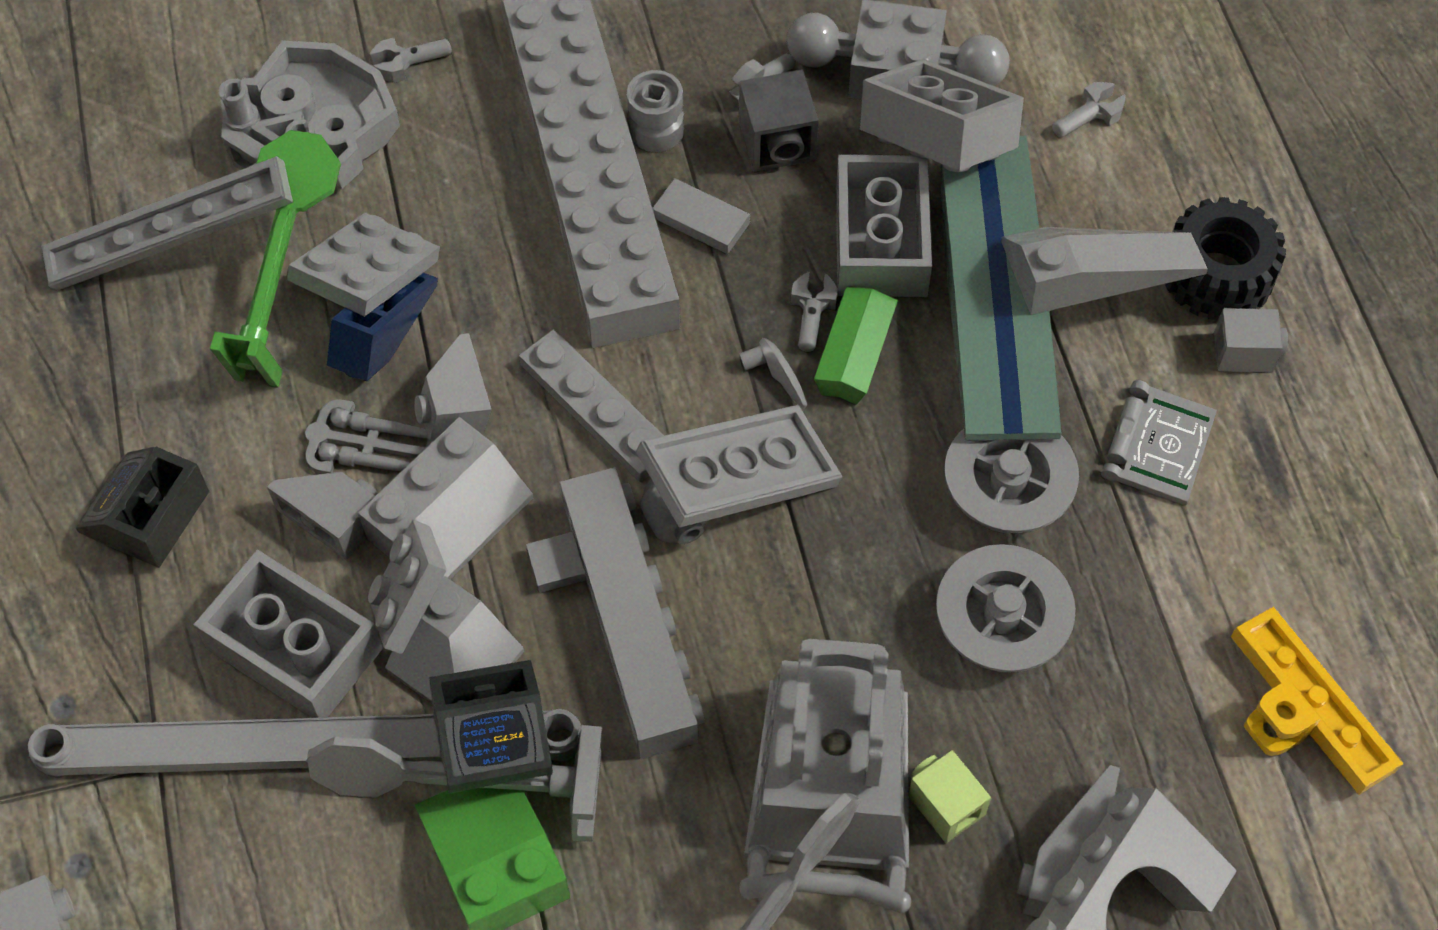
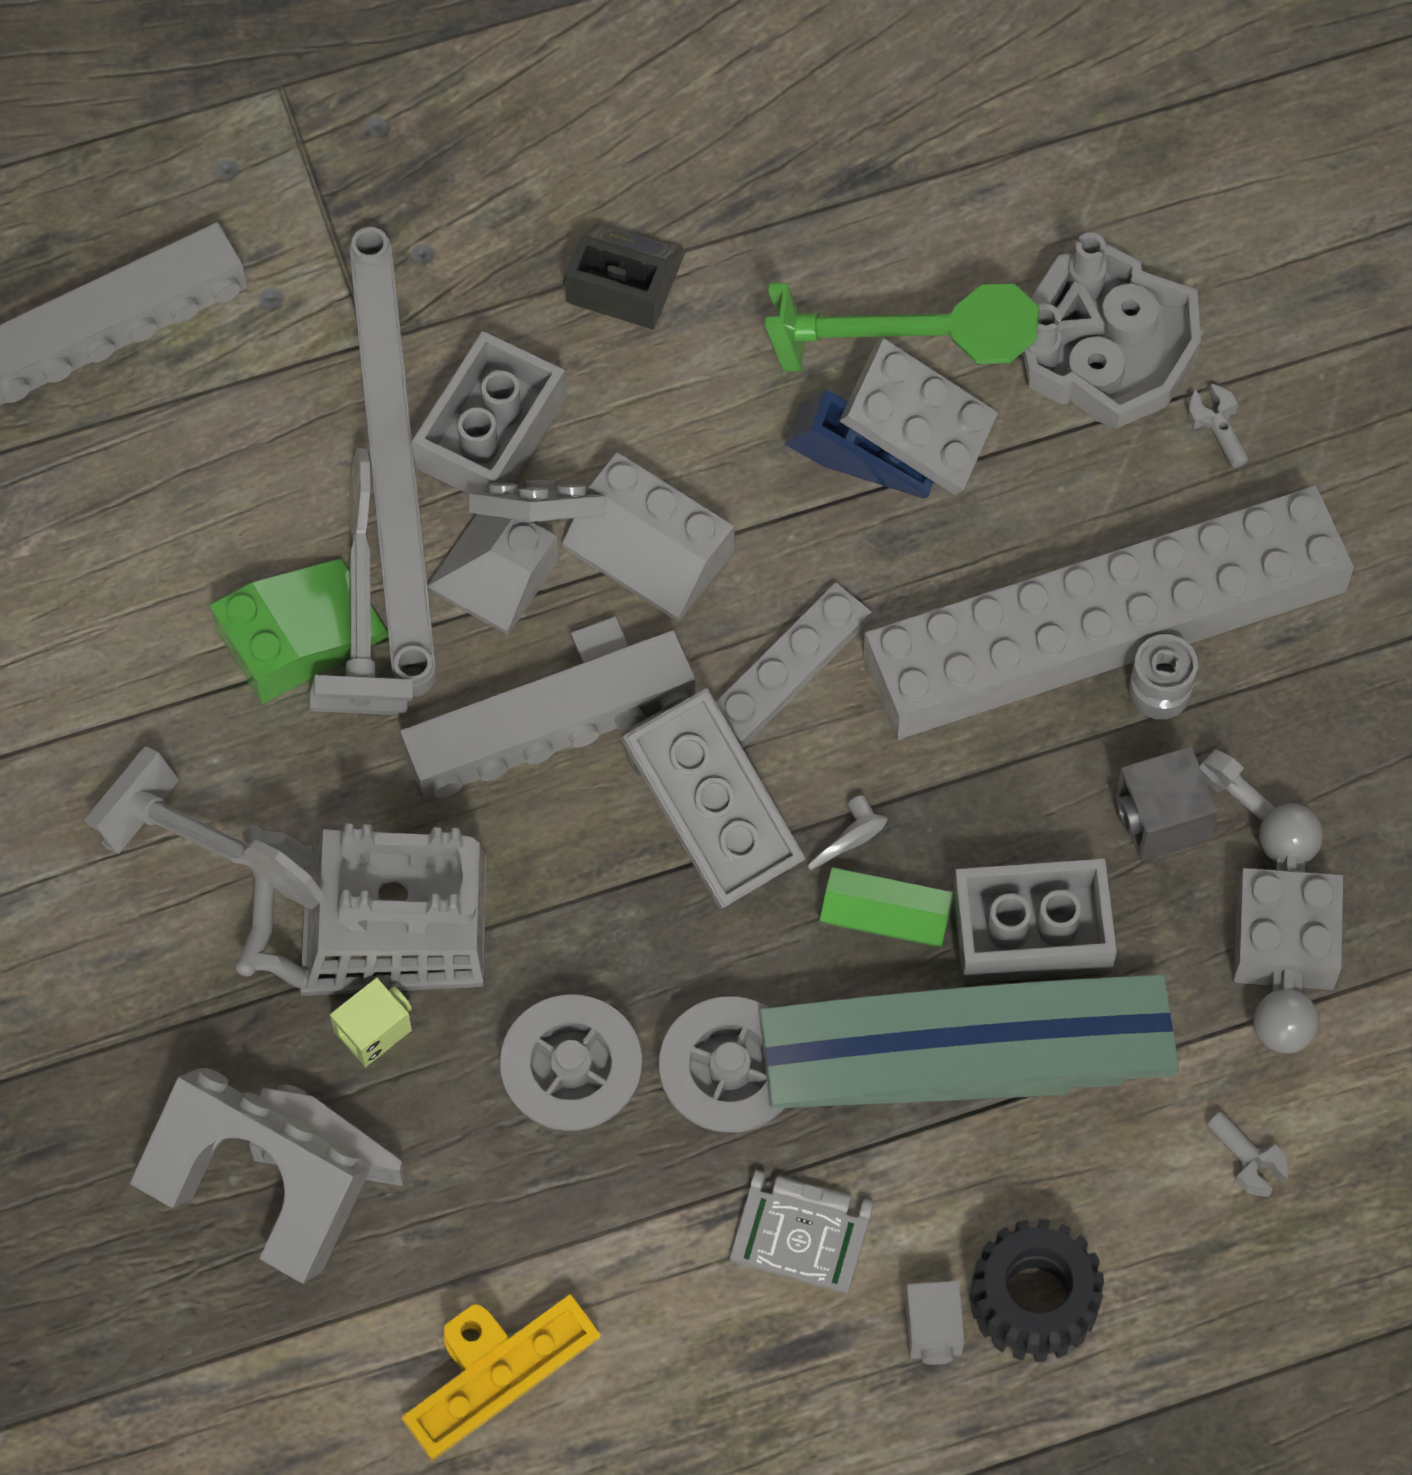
camera: 85 degrees right, 5 degrees up
(167, 223) = (933, 224): light grey tile -> none
(325, 507) = (635, 430): light grey slope -> none
(343, 414) = (729, 416): light grey piece -> none
(453, 391) = (776, 523): light grey slope -> none
(490, 726) = (393, 593): slope -> none
(701, 216) = (1040, 744): light grey tile -> none
(812, 308) = (932, 867): light grey bar -> none
(941, 114) = (1161, 955): light grey brick -> none
(1082, 265) = (987, 1122): light grey wedge -> none

